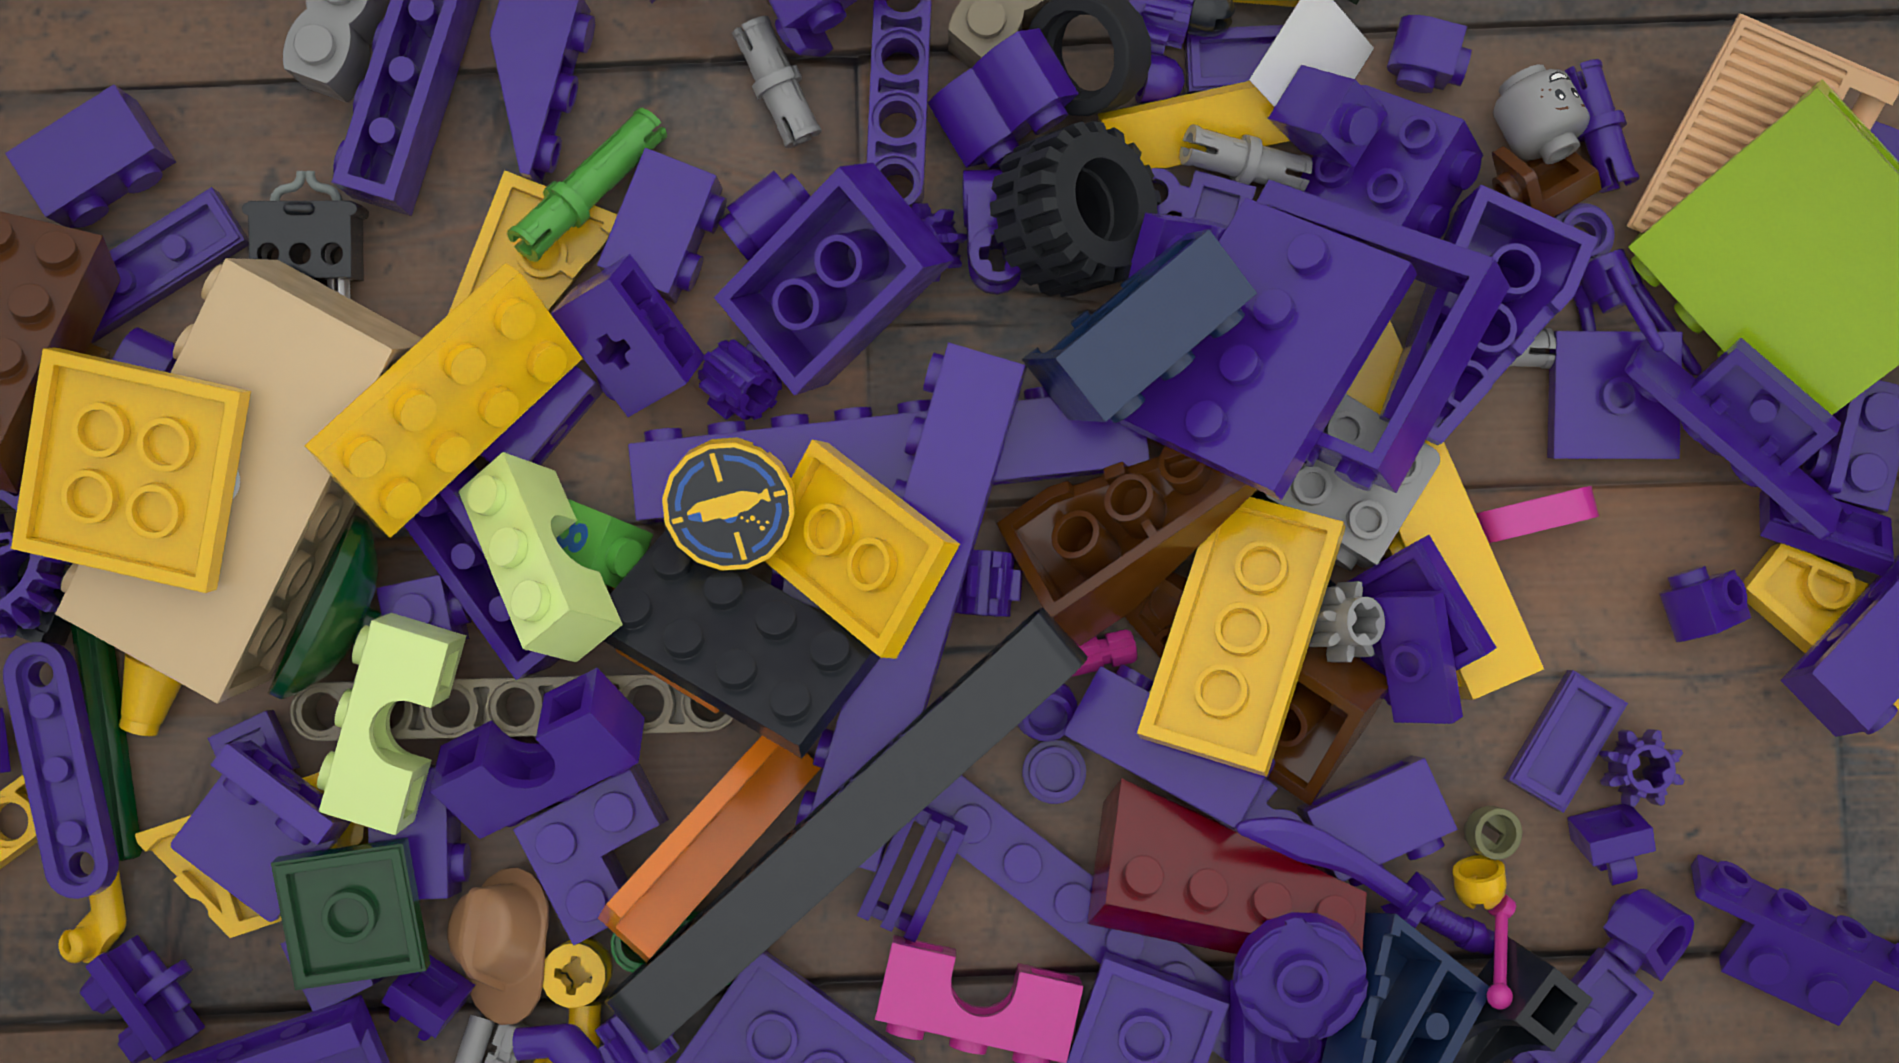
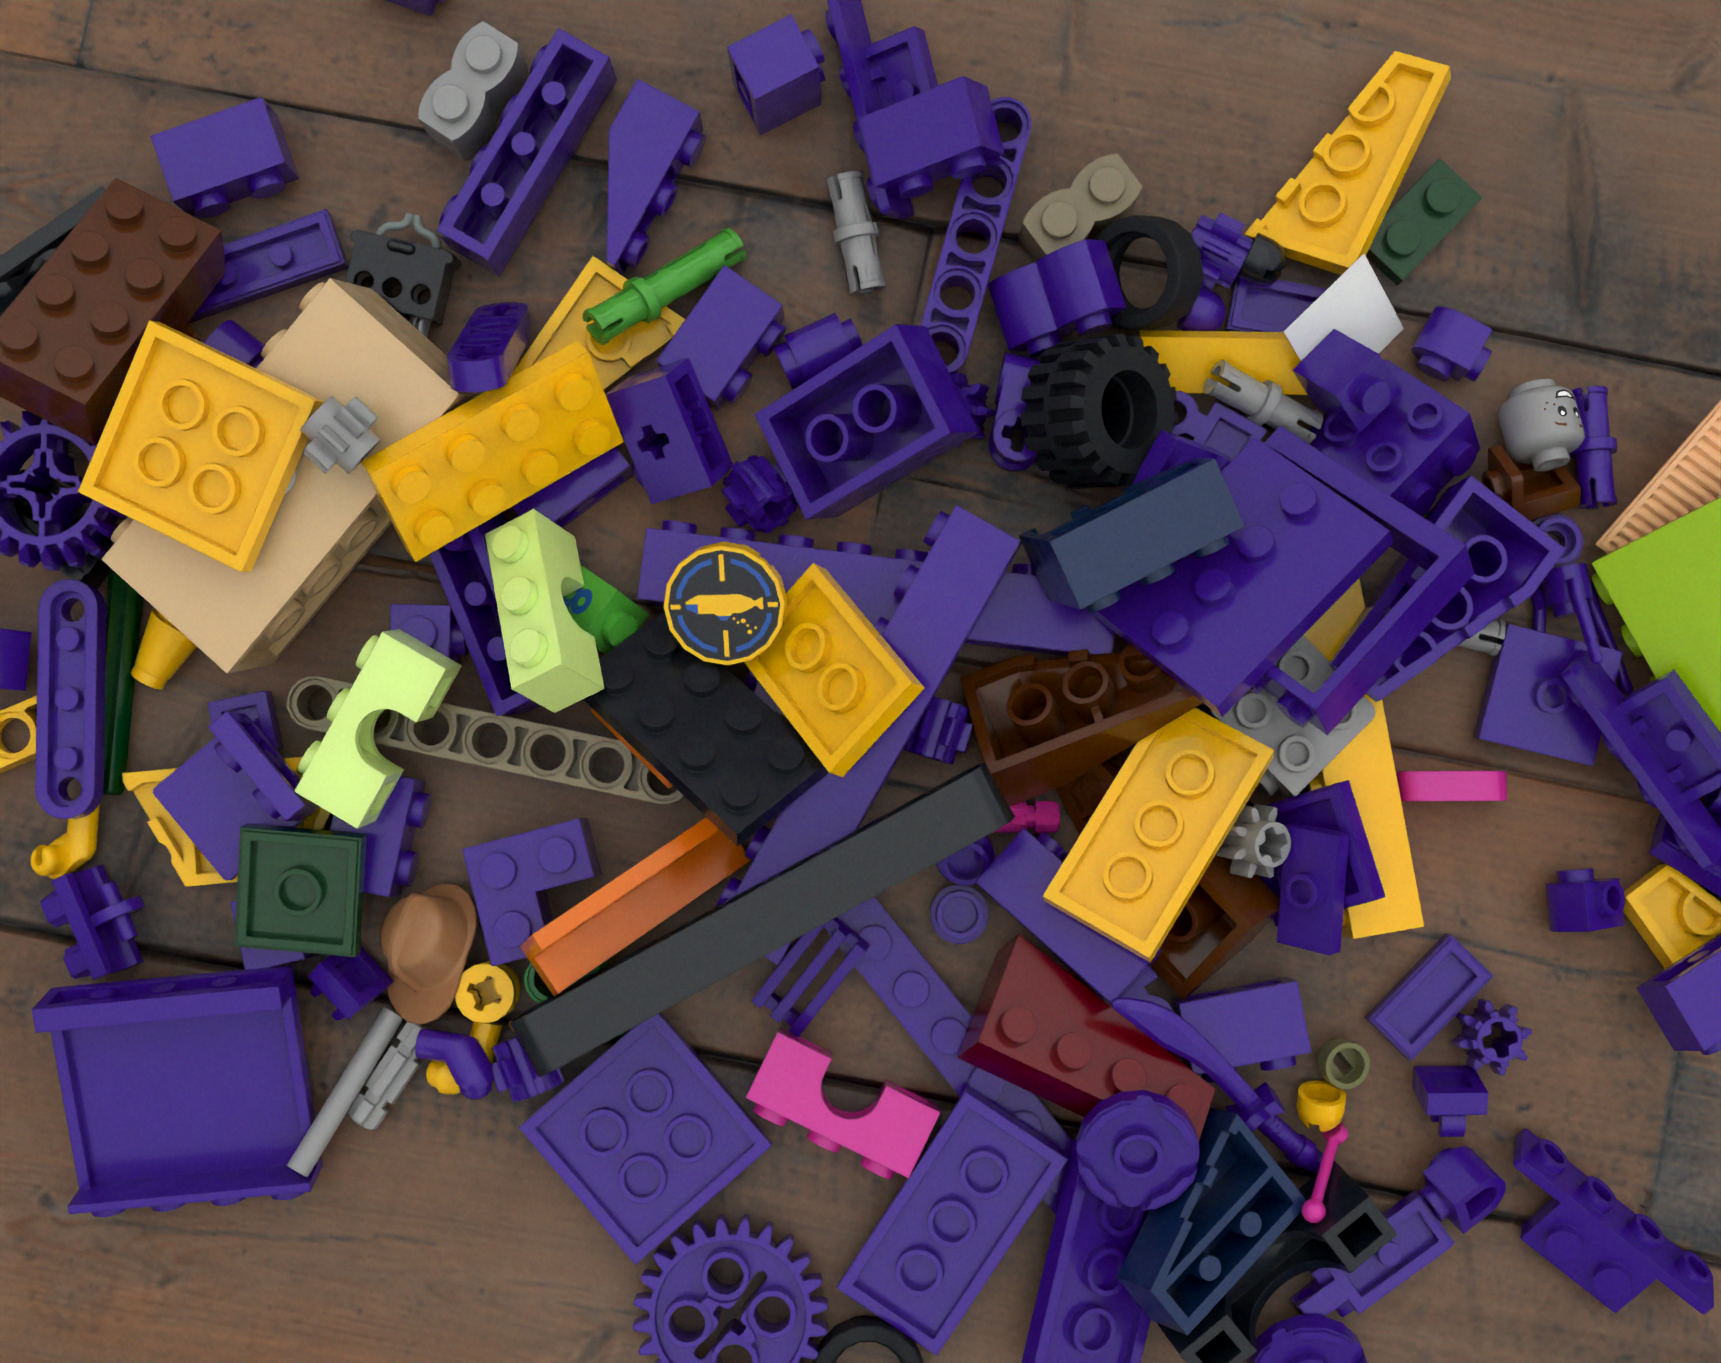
camera: 15 degrees right, 0 degrees up
(274, 422) = (340, 434): none -> light grey gear
(333, 613) = (346, 617): dark green dish -> none
(415, 292) = (489, 347): none -> dark purple beam
(582, 735) = (546, 783): dark purple arch -> none

